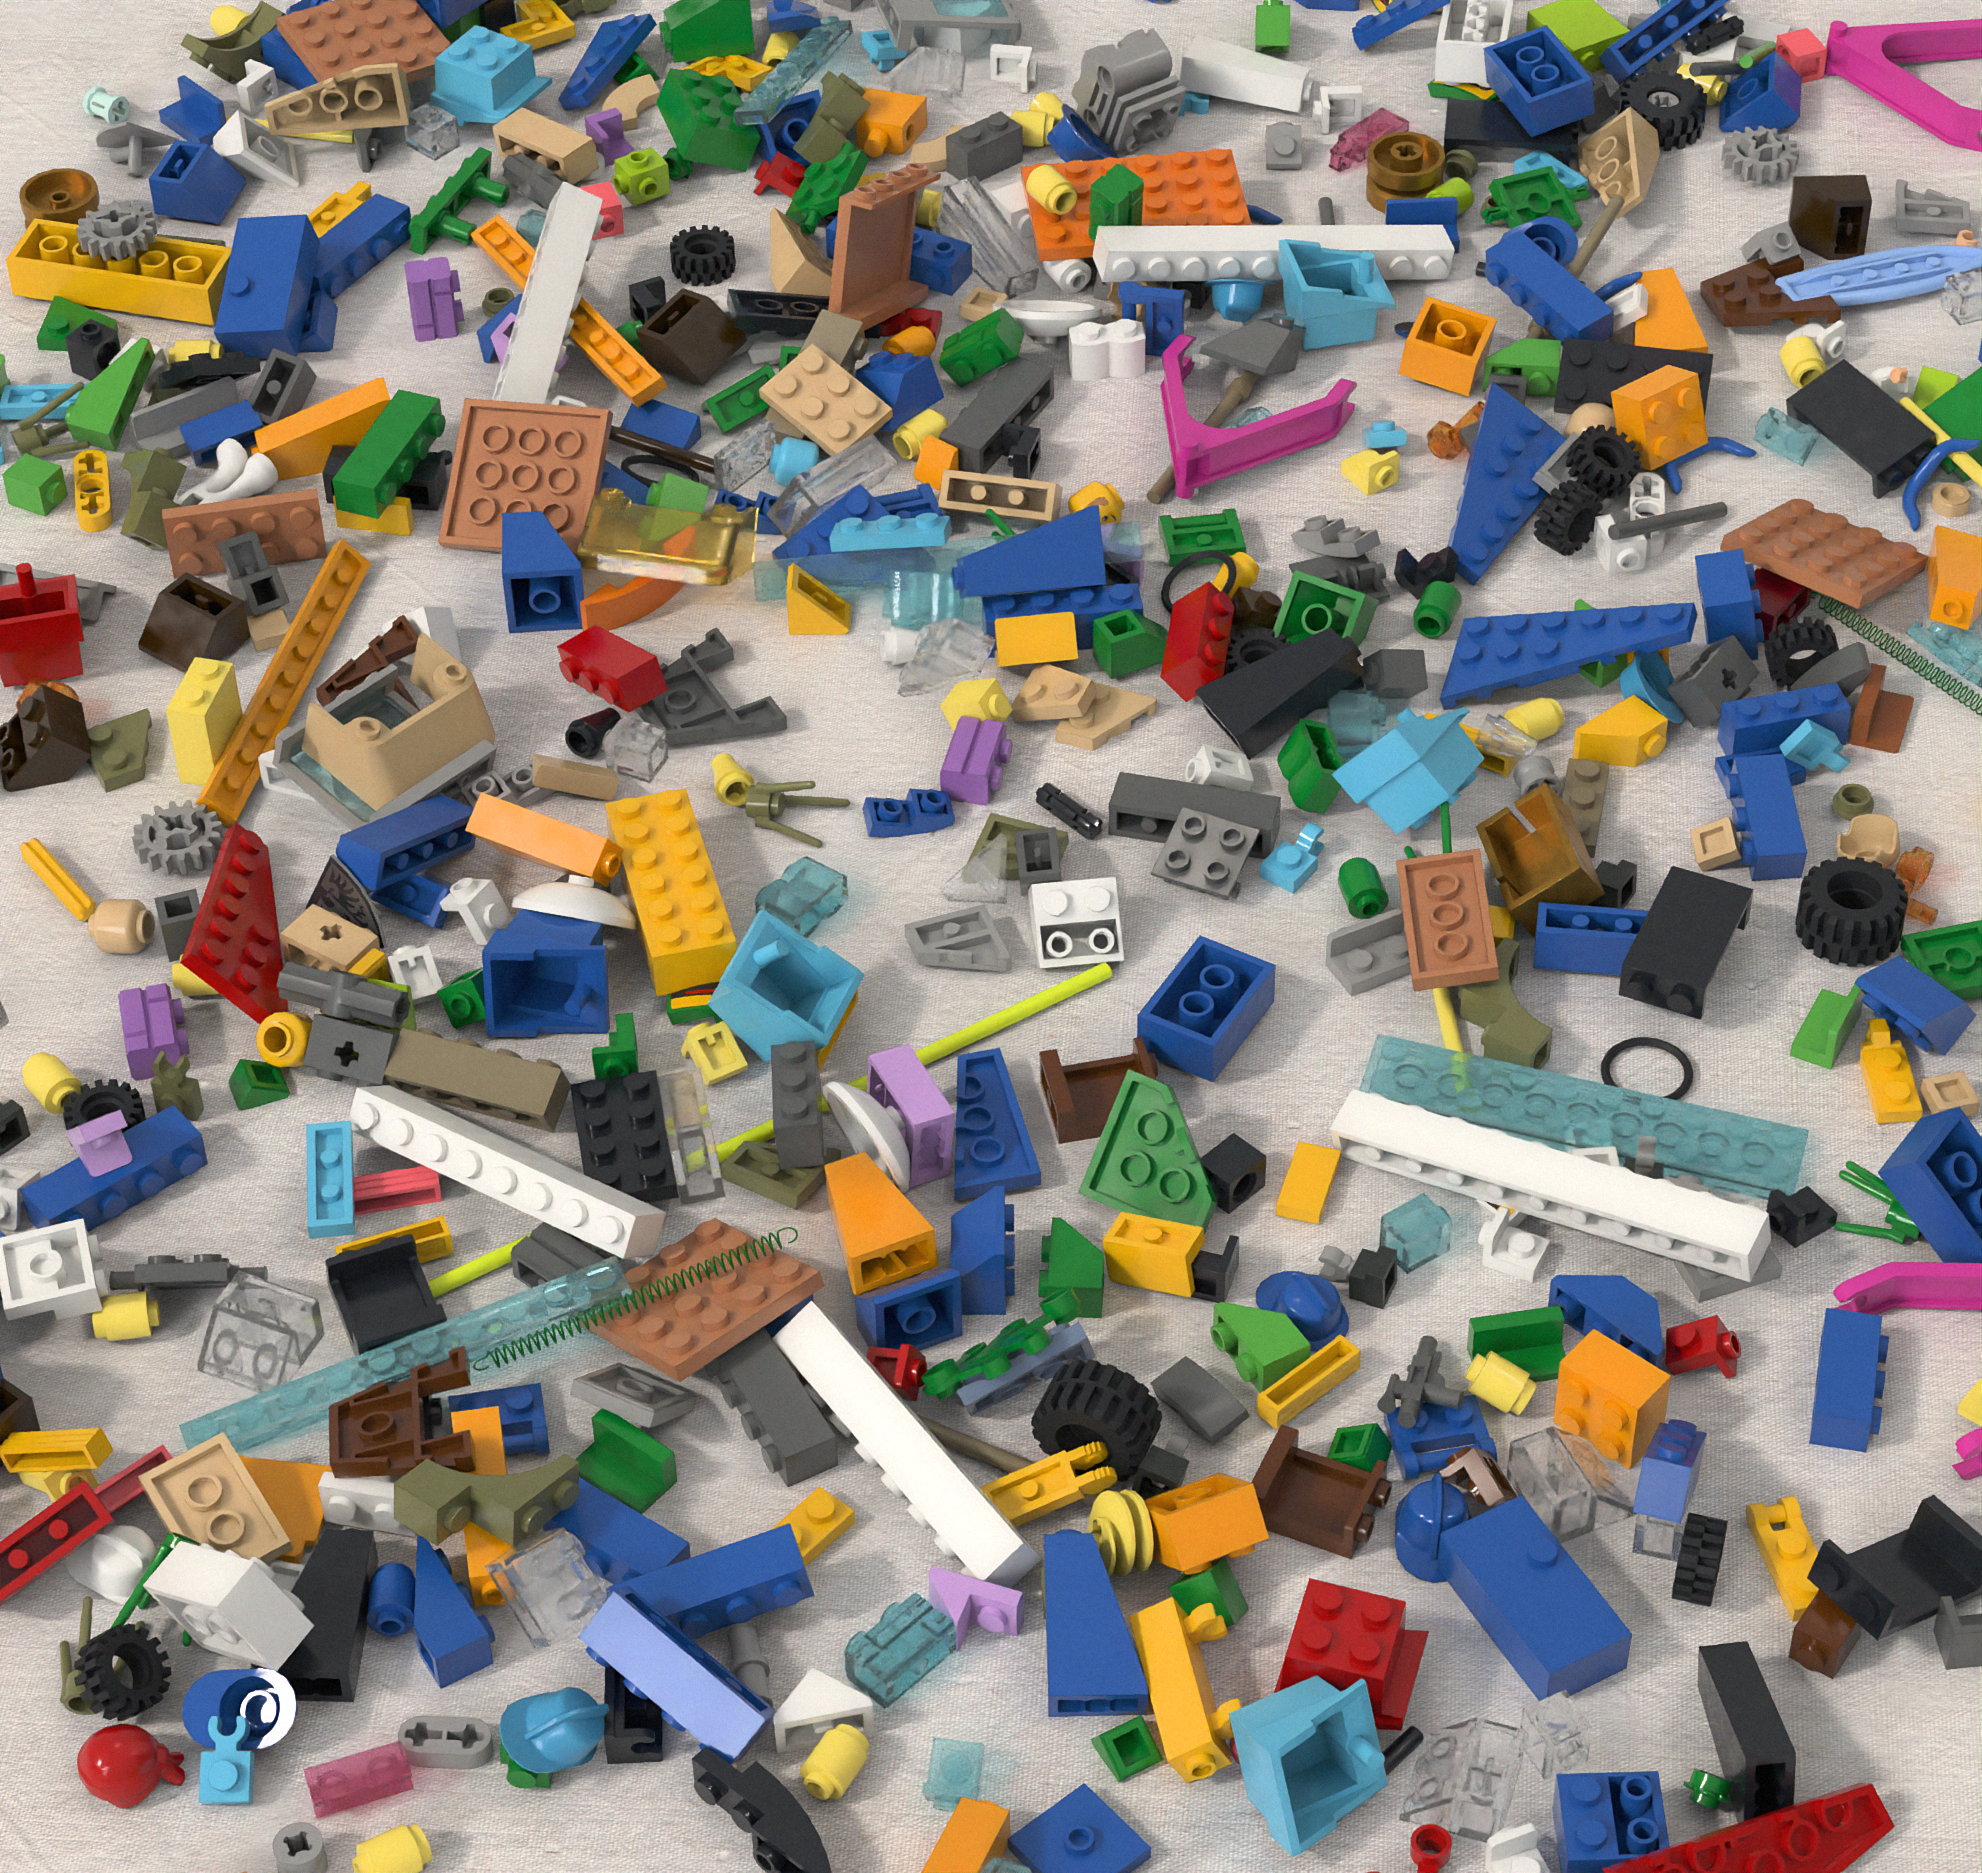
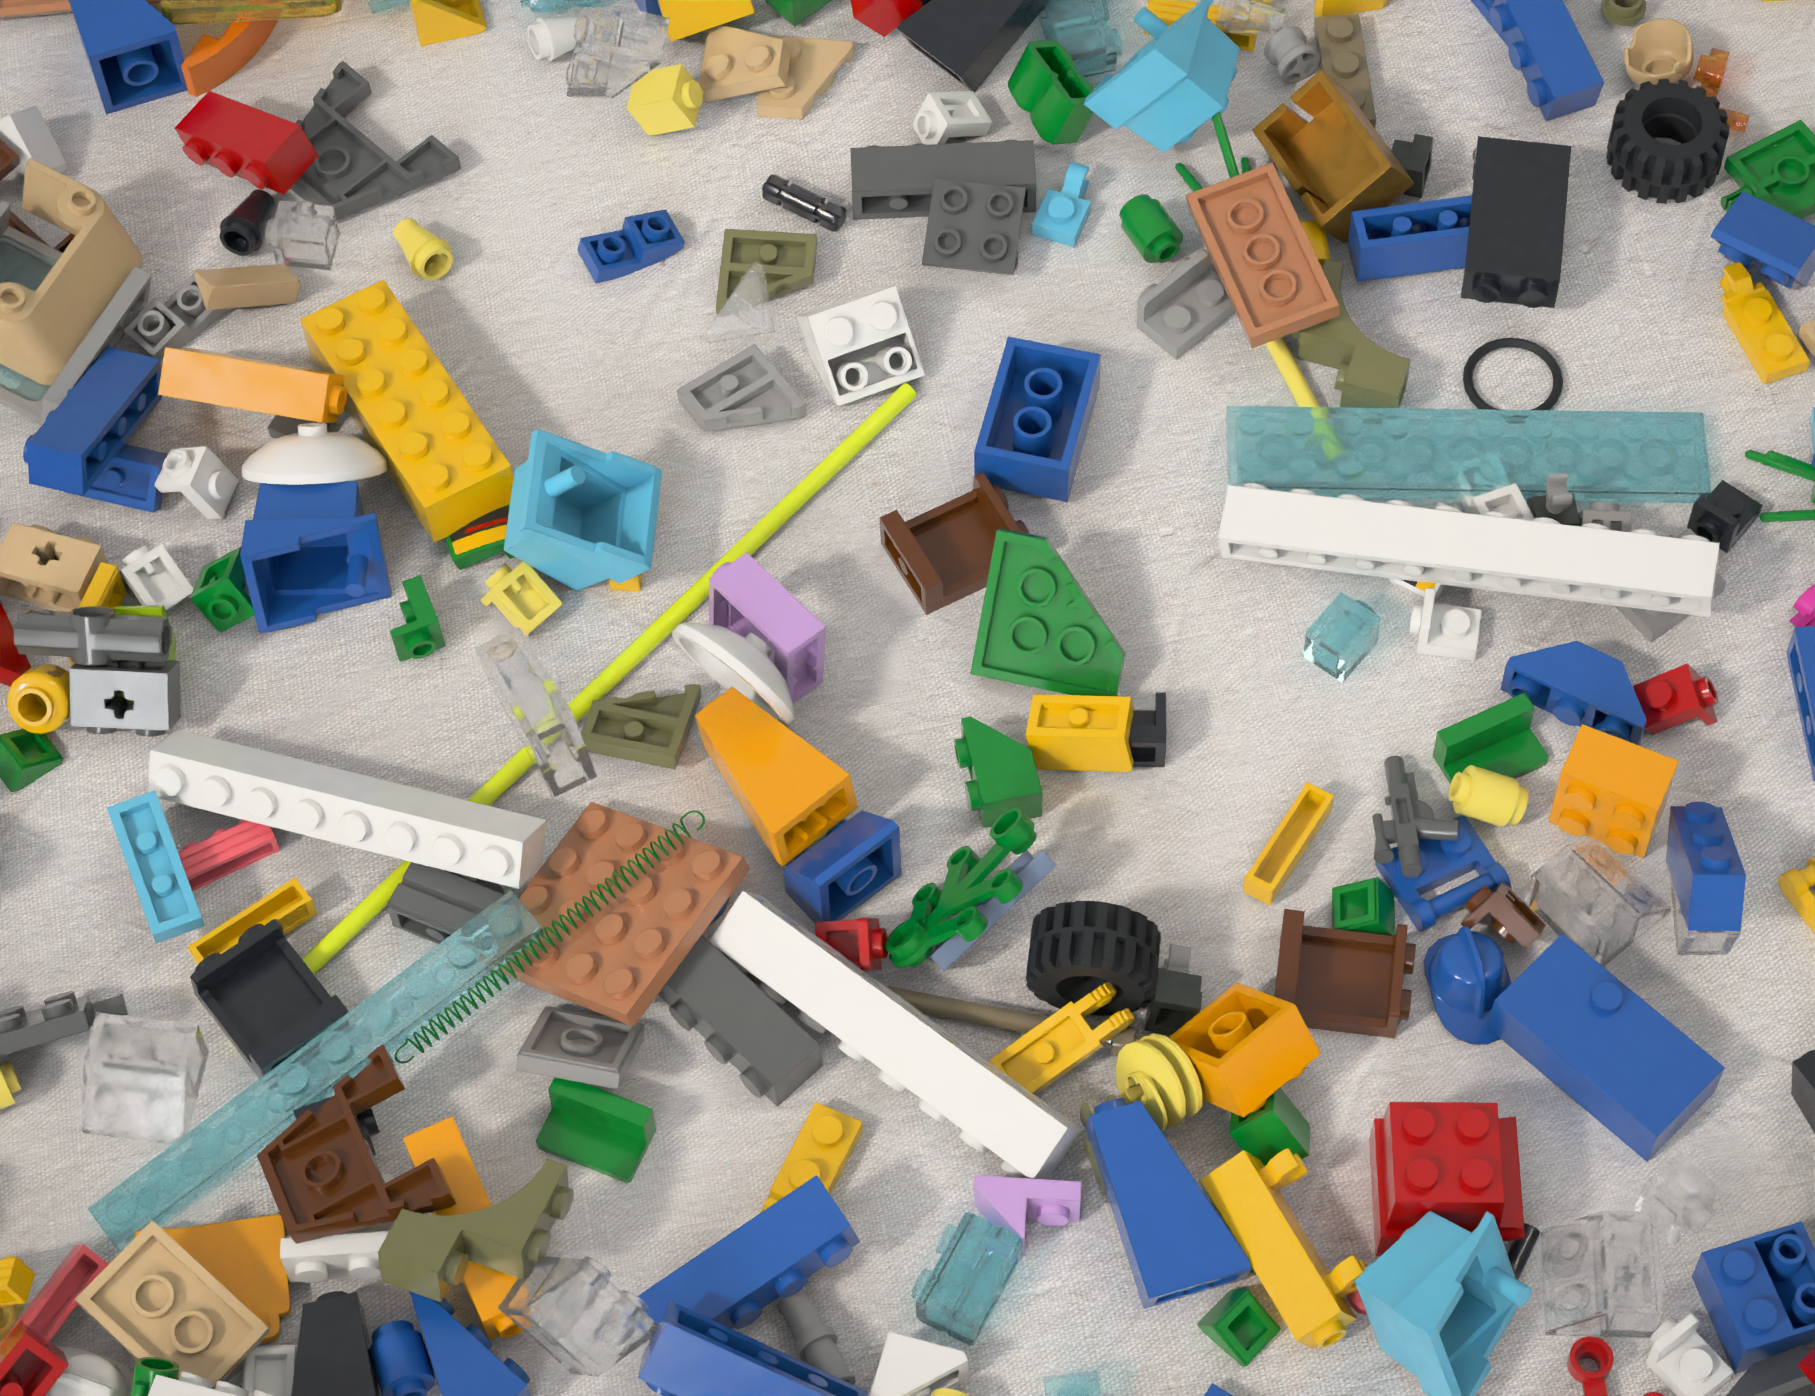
camera: 15 degrees left, 15 degrees up
(343, 894) = (45, 504): shield -> none
(478, 1079) = (273, 696): dark tan brick -> none
(520, 1415) = (440, 1094): blue plate -> none
(618, 1538) = (627, 1230): blue brick -> none
(625, 1135) = (459, 726): black plate -> none
(767, 801) = (474, 268): olive plant -> none
(797, 1105) = (641, 647): dark grey brick -> none
(804, 895) = (551, 383): clear light blue brick -> none
(975, 760) = (683, 164): medium lavender brick -> none
(983, 1251) = (899, 777): blue slope -> none
(990, 1129) = (863, 638): blue wing -> none
(1037, 857) = (798, 277): dark grey slope -> none
(1201, 1399) = (1183, 893): dark grey slope -> none
(1234, 1172) = (1130, 608): black brick -> none
(1259, 1342) = (1226, 811): bright green slope -> none
(1308, 1182) = (1207, 600): yellow tile -> none
(1308, 1302) = (1250, 753): blue piece -> none
(1370, 1276) = (1310, 699): pearl dark grey piece -> none
(1699, 1559) = (1761, 959): black tyre -> none
(1715, 844) = (1500, 88): tan plate -> none
(1827, 1027) = (1682, 282): bright green panel -> none

